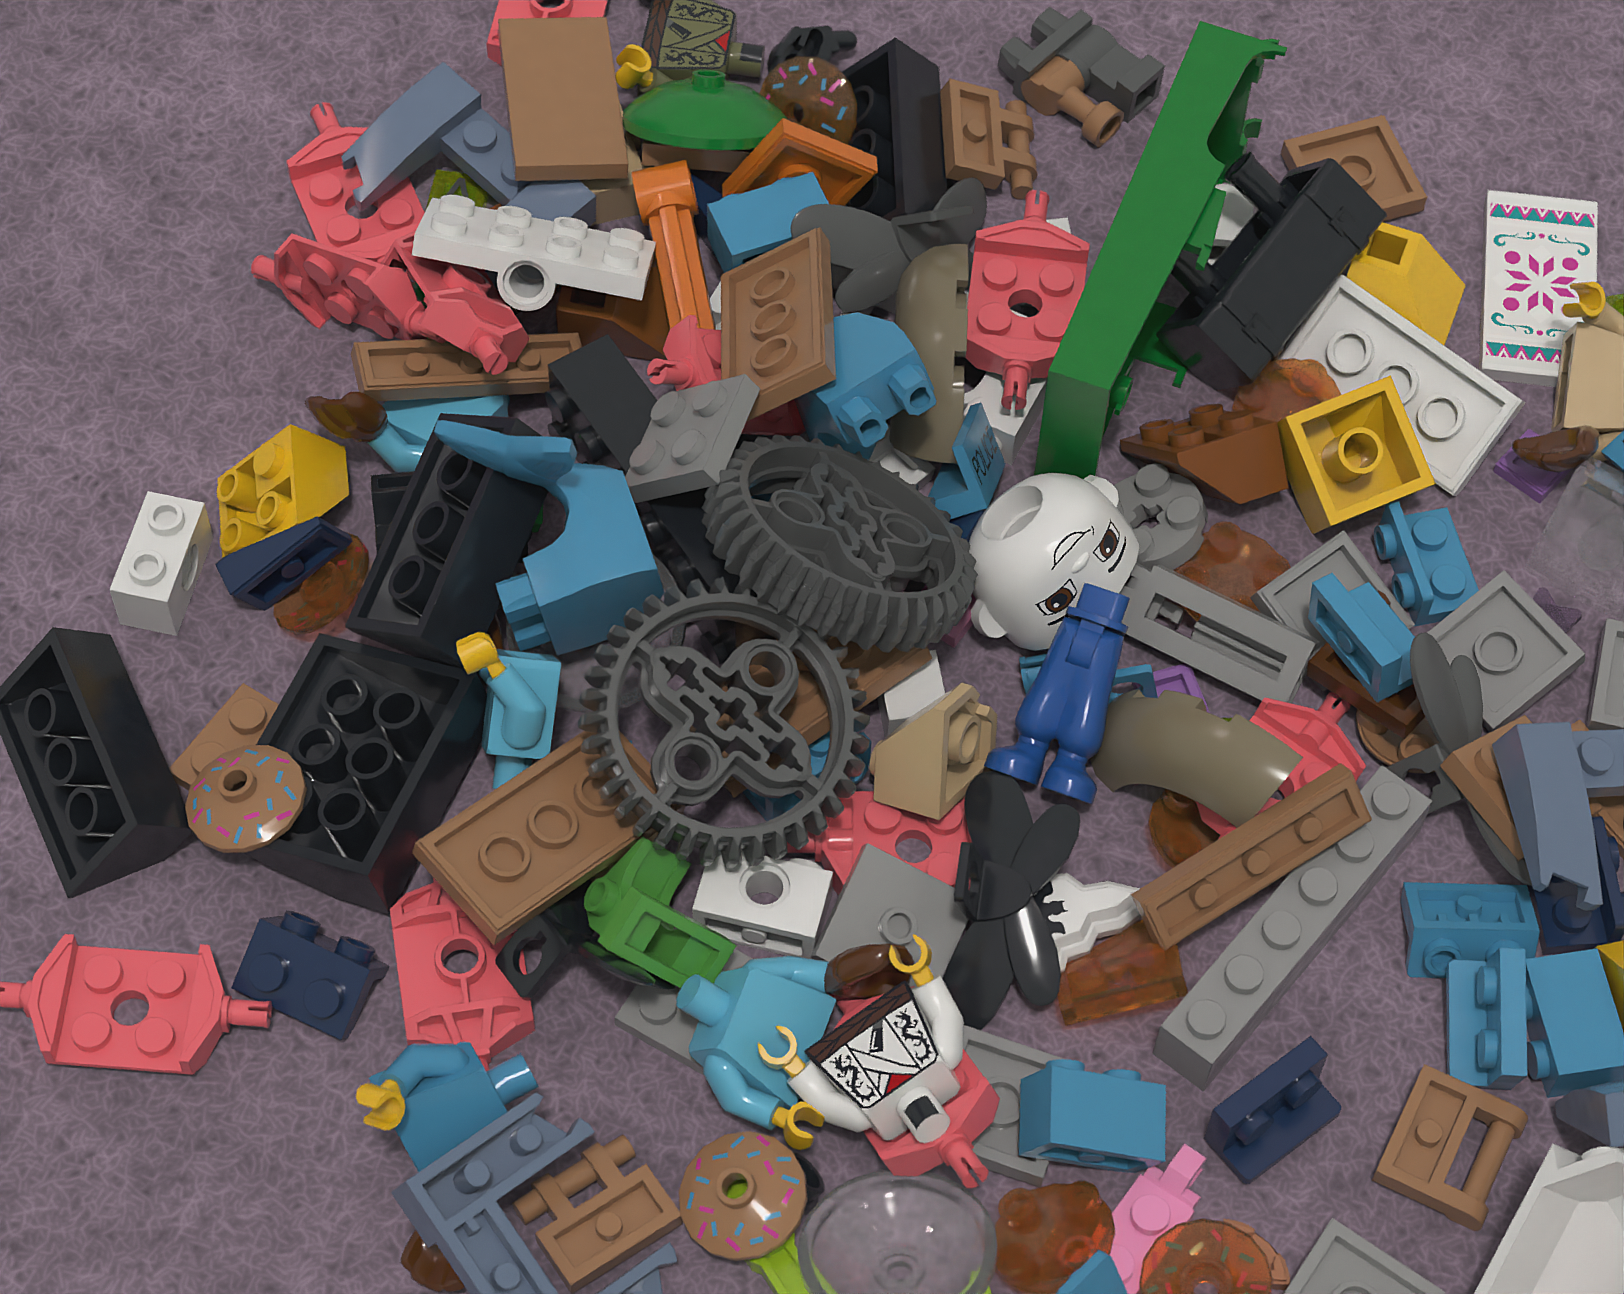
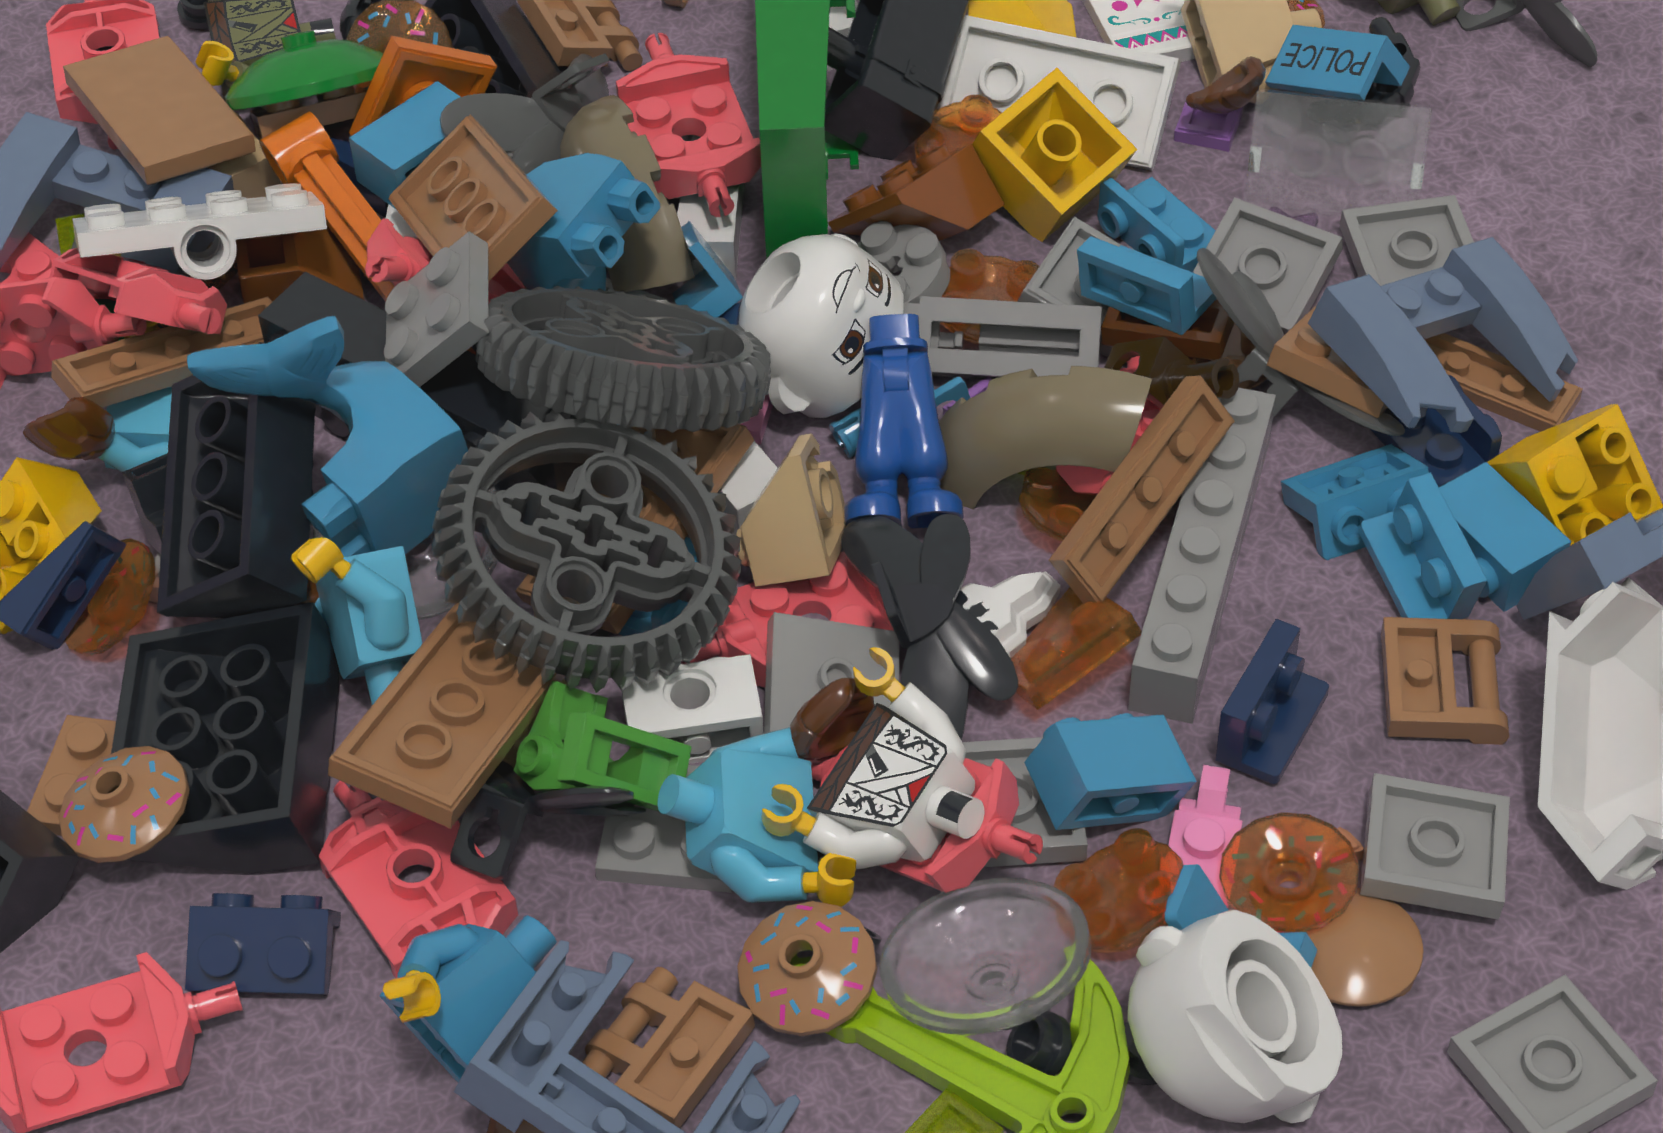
camera: 20 degrees left, 10 degrees down
(1337, 739) = (1169, 366): none -> dark brown bracket

